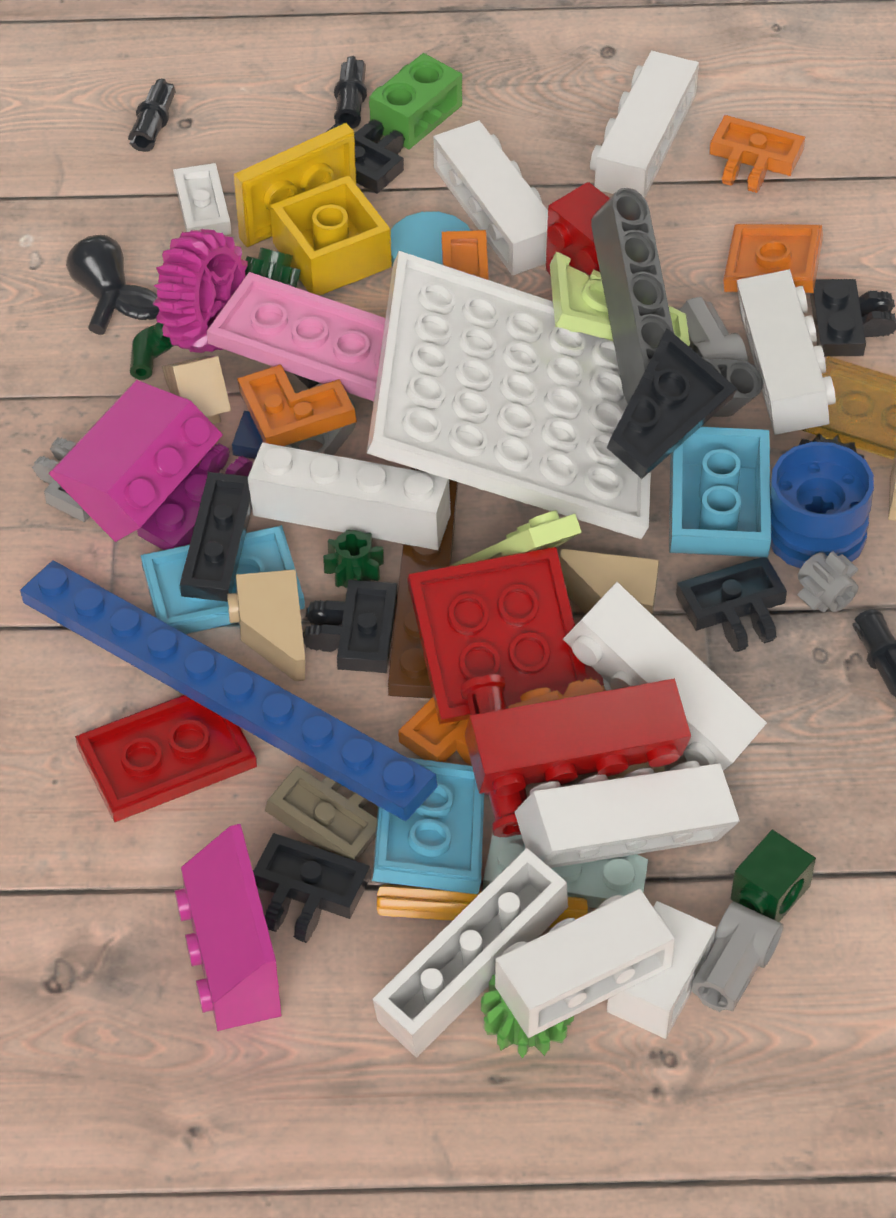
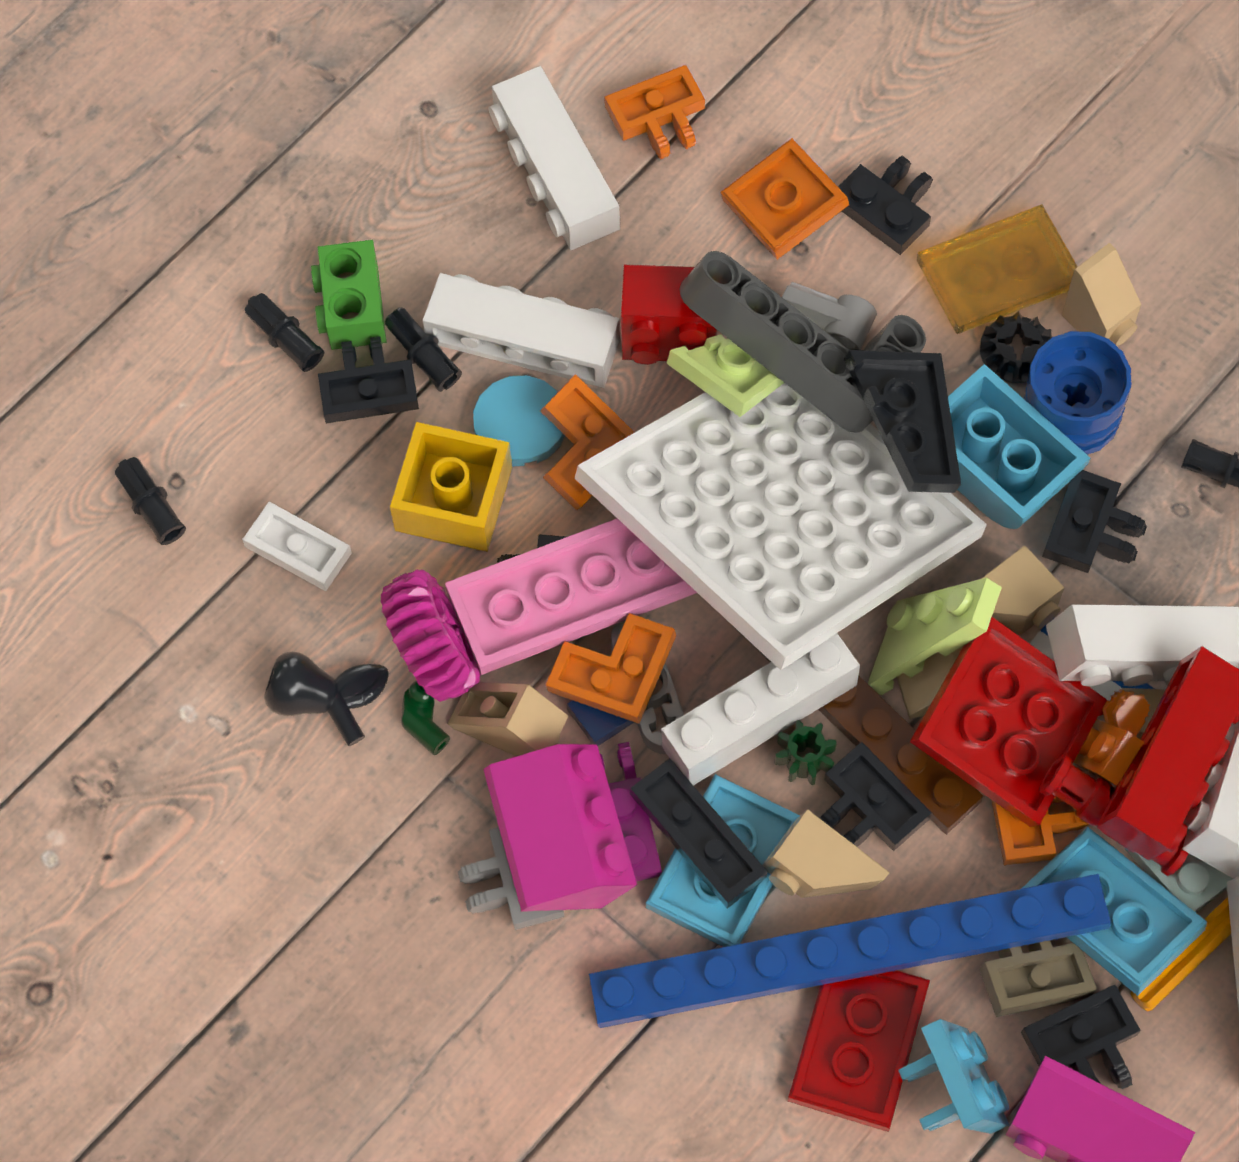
camera: 45 degrees left, 15 degrees up
(185, 808) = (960, 1062): none -> medium azure plate
(273, 266) = (442, 558): dark green gear -> none
(289, 174) = (373, 466): yellow tile -> none
(420, 163) = (423, 350): none -> black axle
(784, 351) = (895, 278): white brick -> none
(827, 582) = (1138, 449): light grey gear -> none

